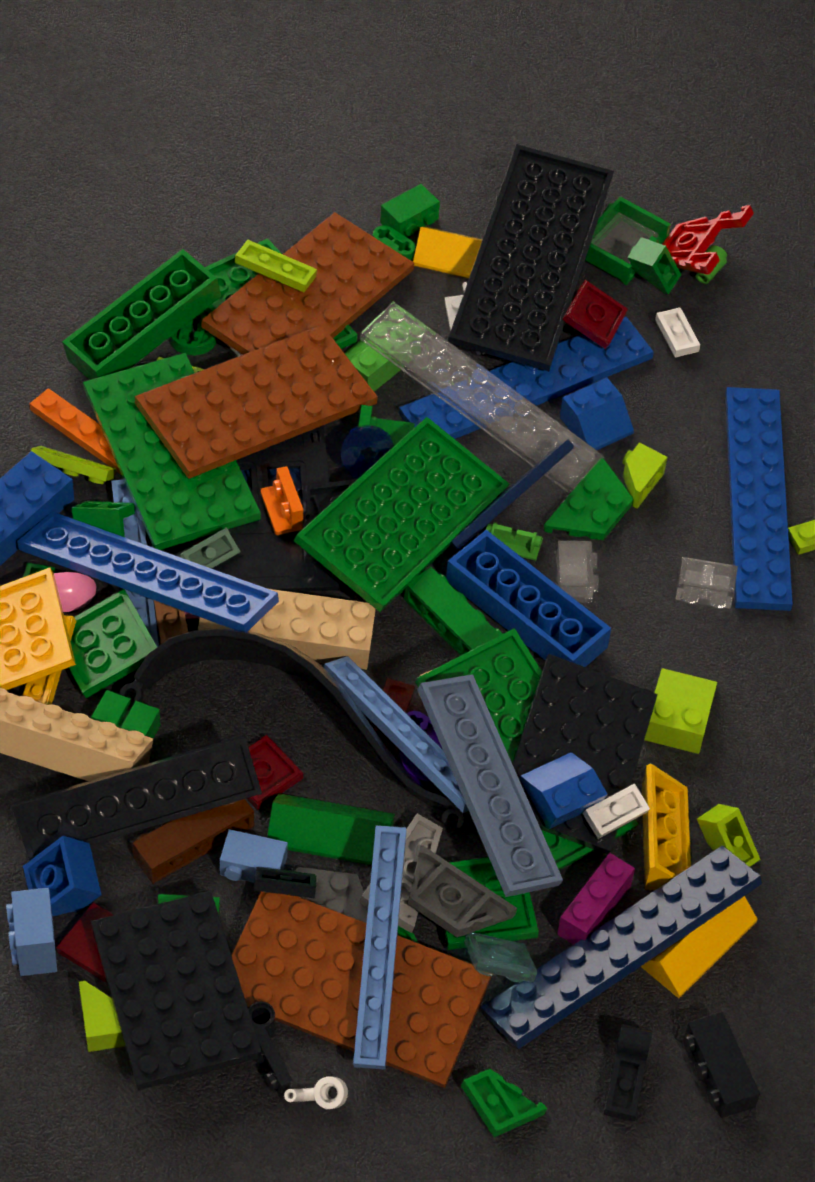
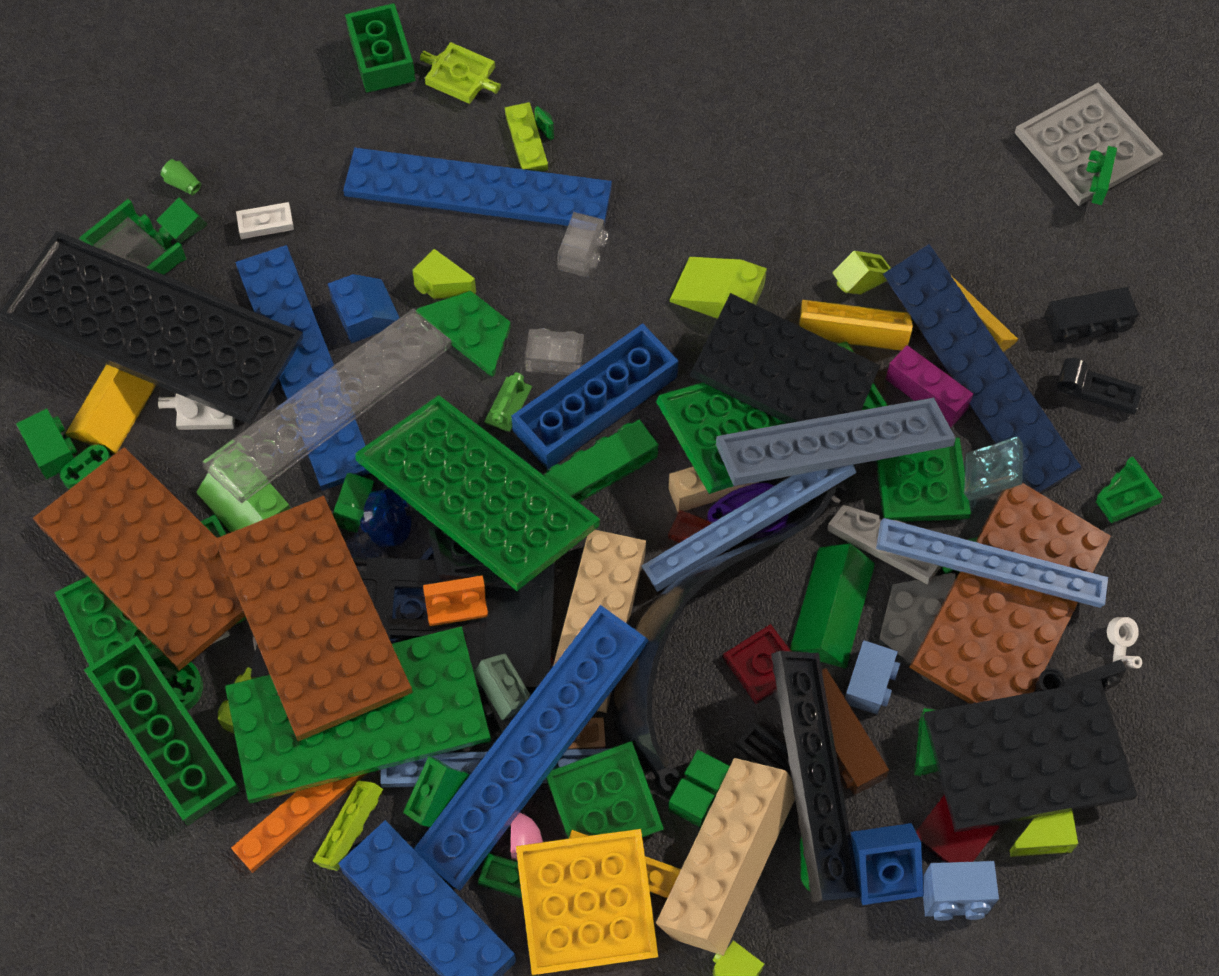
camera: 80 degrees left, 10 degrees up
(275, 266) = (117, 578): lime plate -> none
(285, 882) = (918, 644): black tile -> none
(454, 897) = (933, 497): dark grey wing -> none
(511, 495) = (457, 384): dark blue tile -> none
(563, 789) = (838, 381): blue slope -> none
(595, 314) = (240, 282): dark red tile -> none
(616, 811) = (854, 347): white plate -> none
(692, 238) = (151, 184): red wing -> none

